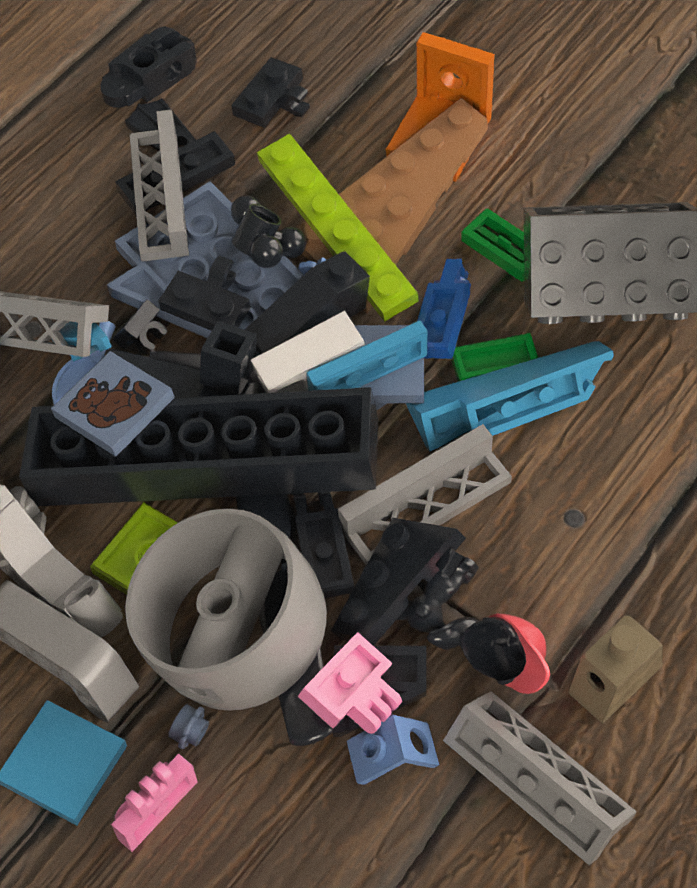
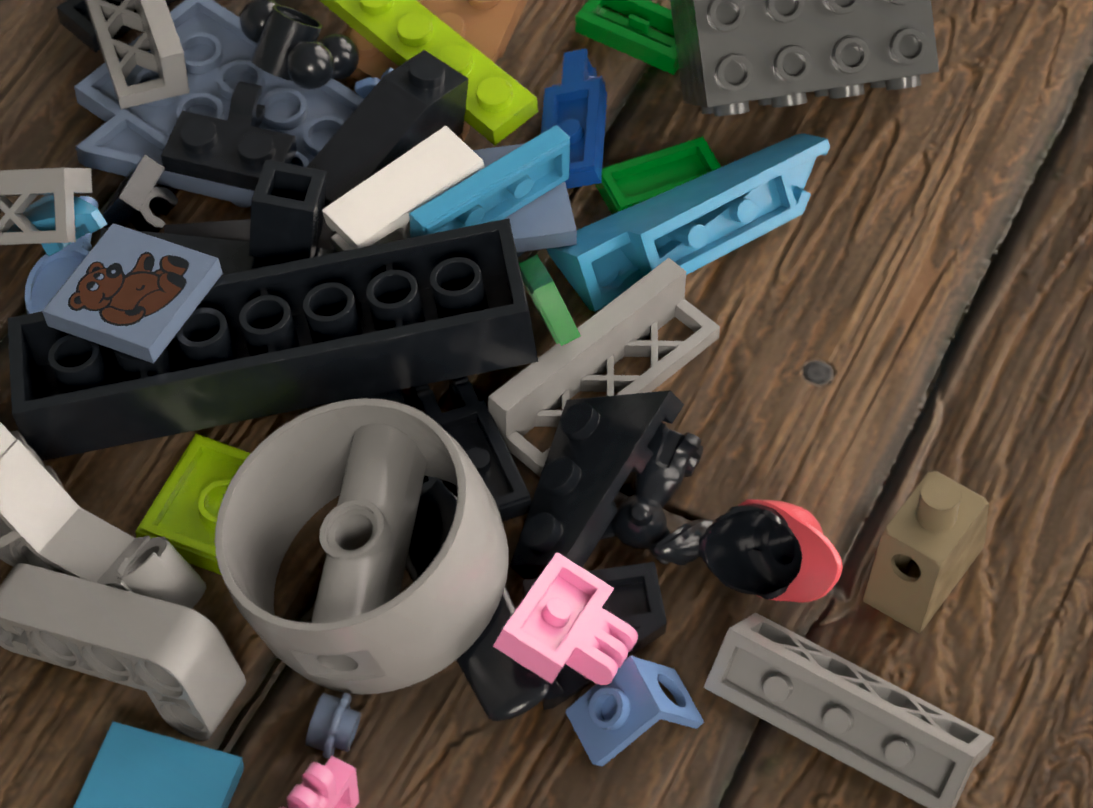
camera: 15 degrees left, 5 degrees down
(393, 444) = (548, 301): none -> green tile

